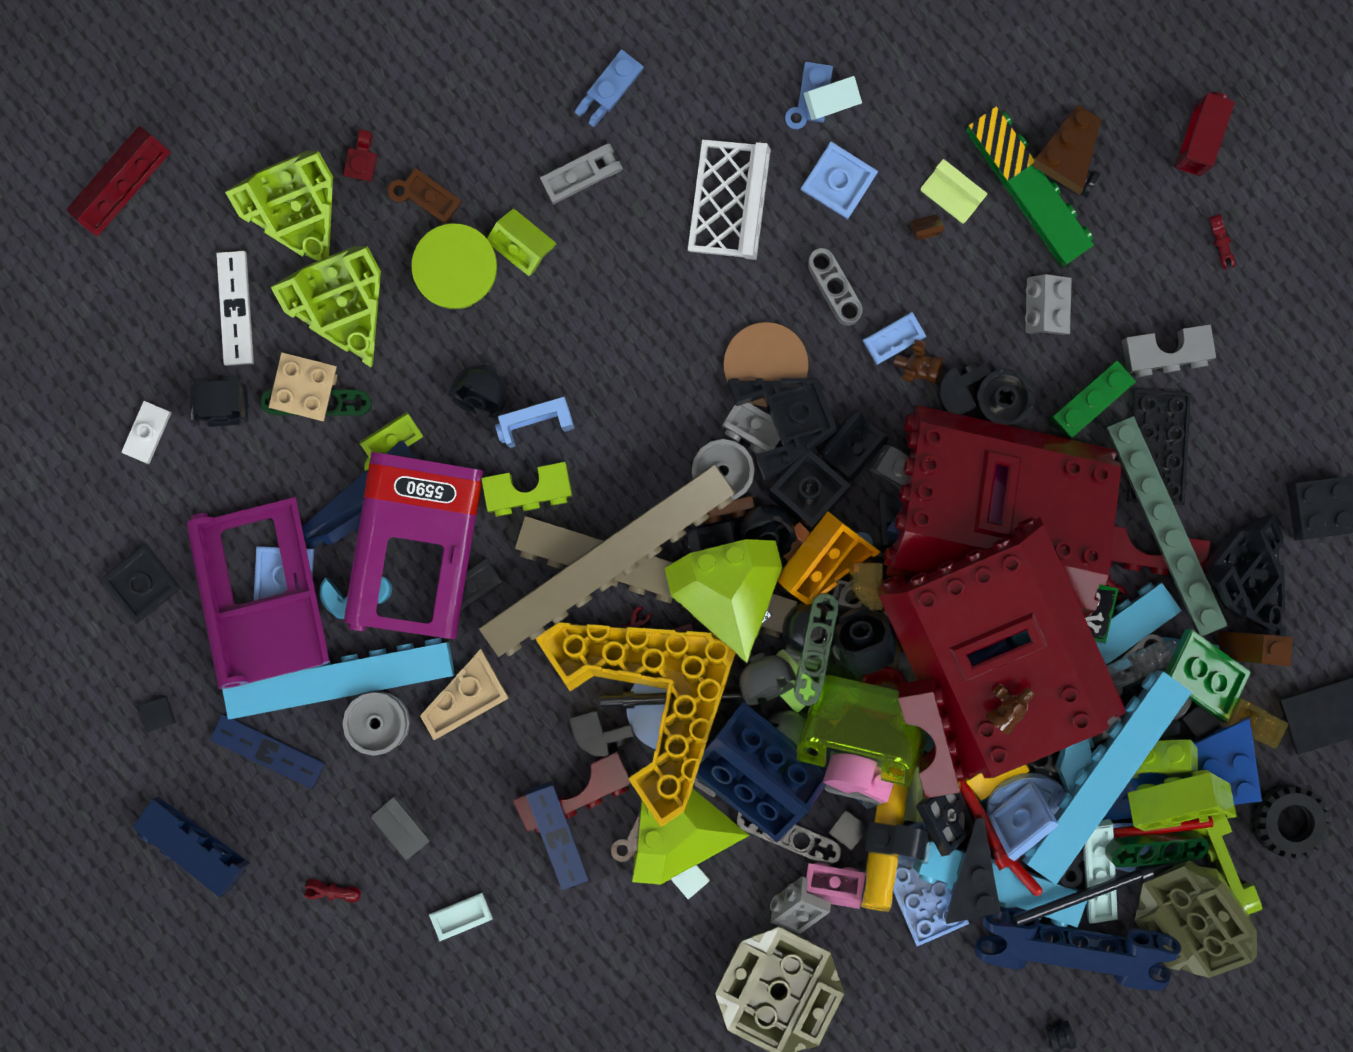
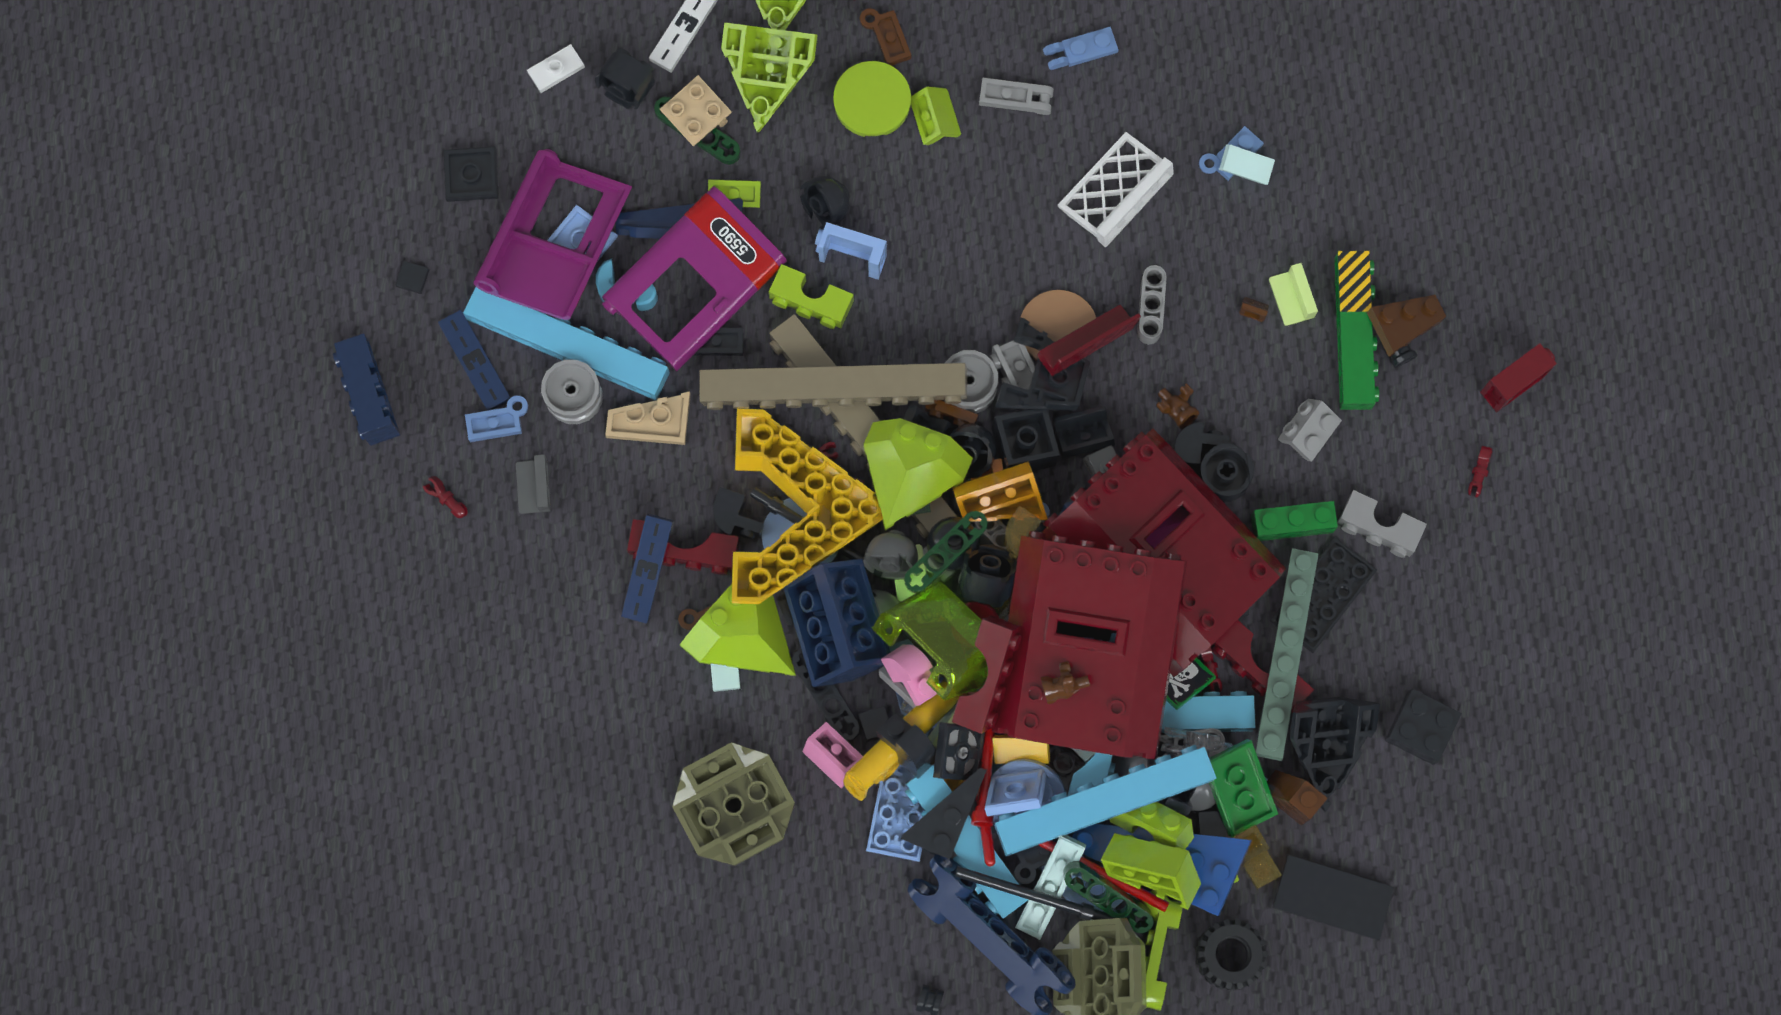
camera: 35 degrees right, 10 degrees down
(327, 794) = (496, 422): none -> medium blue hinge
(461, 916) = (529, 584): light aqua tile -> none
(796, 908) = (794, 751): light grey bracket -> none
(800, 360) = (1087, 339): none -> dark red panel
(839, 180) = (1210, 230): light blue tile -> none
(894, 338) = (1171, 373): light blue plate -> none

